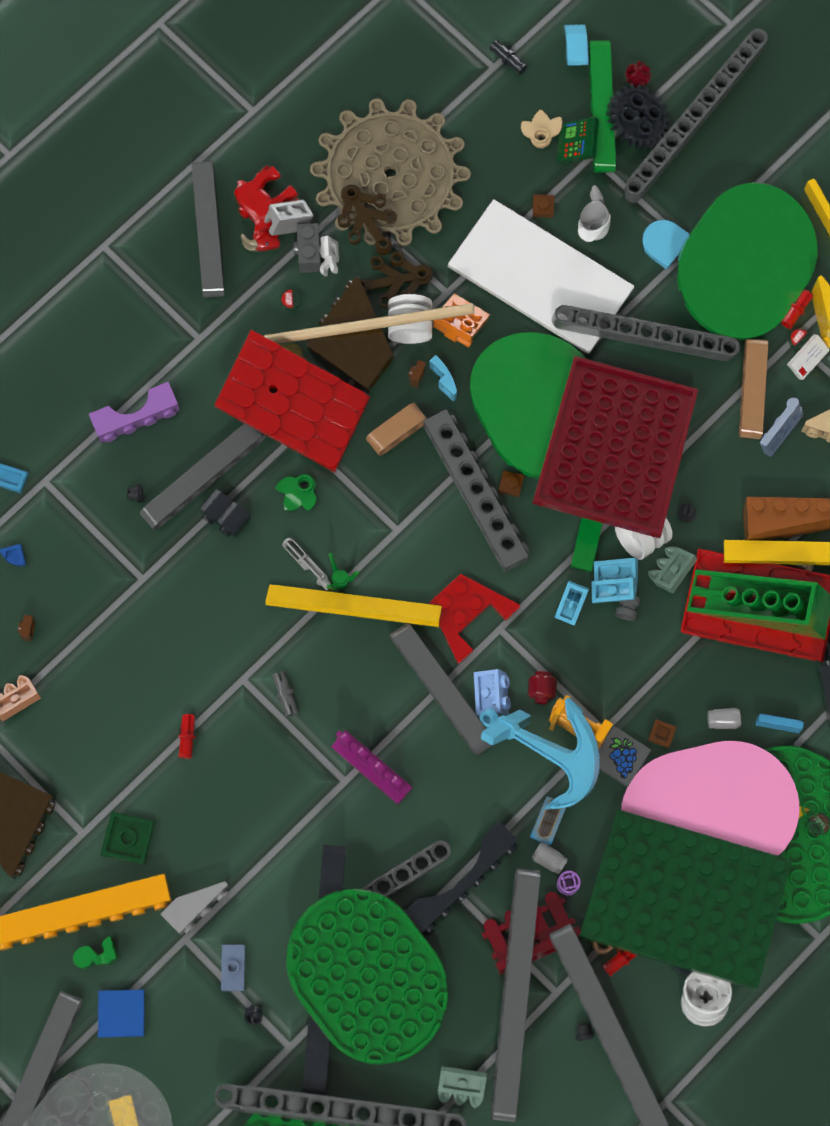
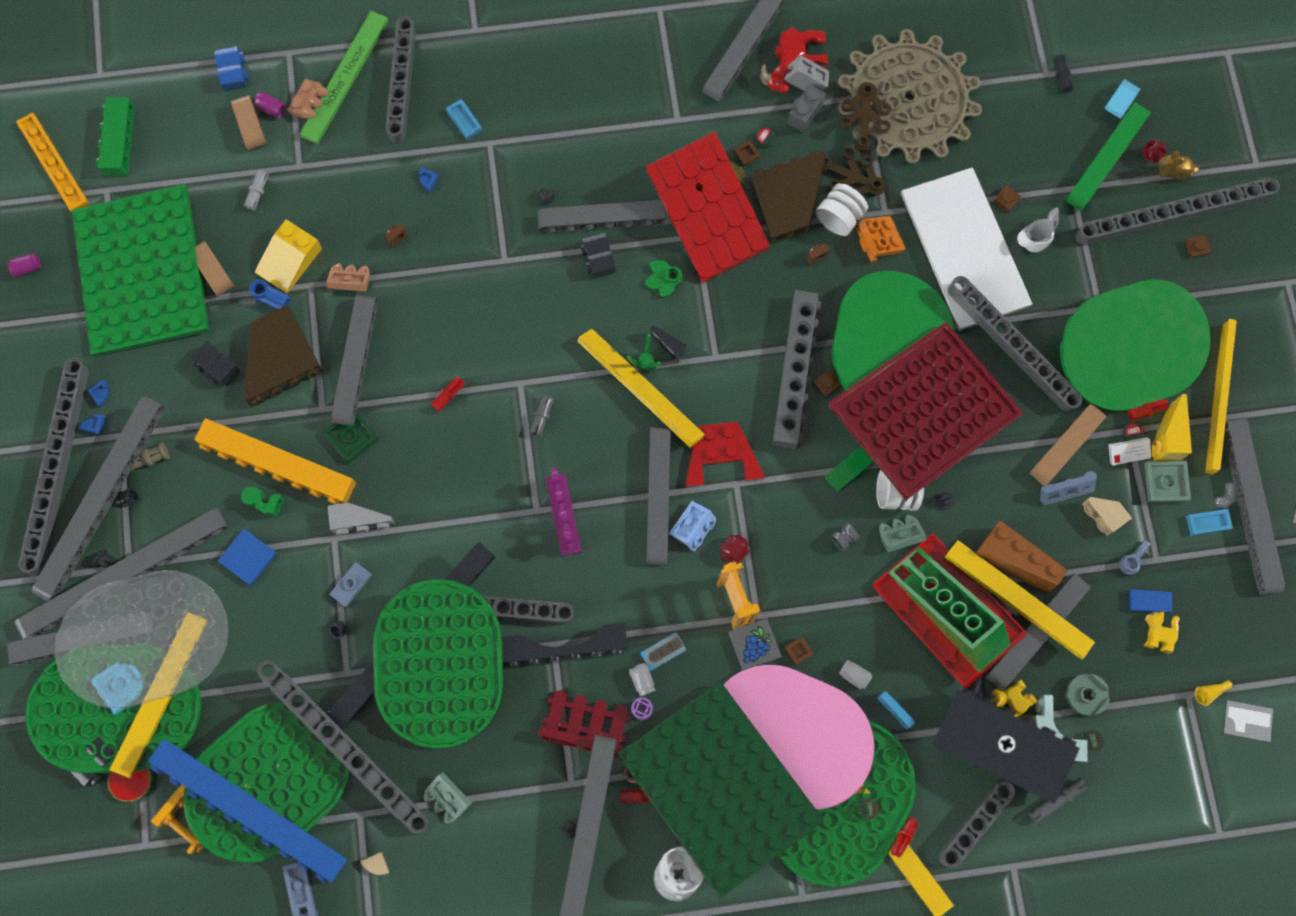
camera: 35 degrees right, 0 degrees up
(80, 767) = (354, 360): none -> dark grey beam
(111, 424) = (611, 144): medium lavender arch -> none
(285, 323) = (746, 153): none -> reddish brown plate
(307, 563) = (630, 332): light grey piece -> none
(330, 253) = (820, 122): white plate -> none
(351, 548) = (671, 345): none -> black slope
(375, 323) = (810, 191): tan piece -> none
(396, 429) = (770, 283): medium nougat beam -> none
(446, 382) = (834, 274): medium azure slope -> none
(515, 995) = (536, 761): dark grey beam -> none
(541, 127) = (1050, 141): tan plate -> none
(571, 603) = (804, 503): medium azure slope -> none
(578, 140) = (1070, 168): dark green tile -> none
(579, 764) = (713, 622): medium azure piece -> none
(615, 580) = (850, 510): medium azure slope -> none
(638, 117) = (1130, 181): black gear -> none
(663, 241) = (1079, 286): medium azure tile -> none
(667, 74) = (1177, 167): none -> pearl gold animal
(735, 134) = (1198, 246): none -> reddish brown plate

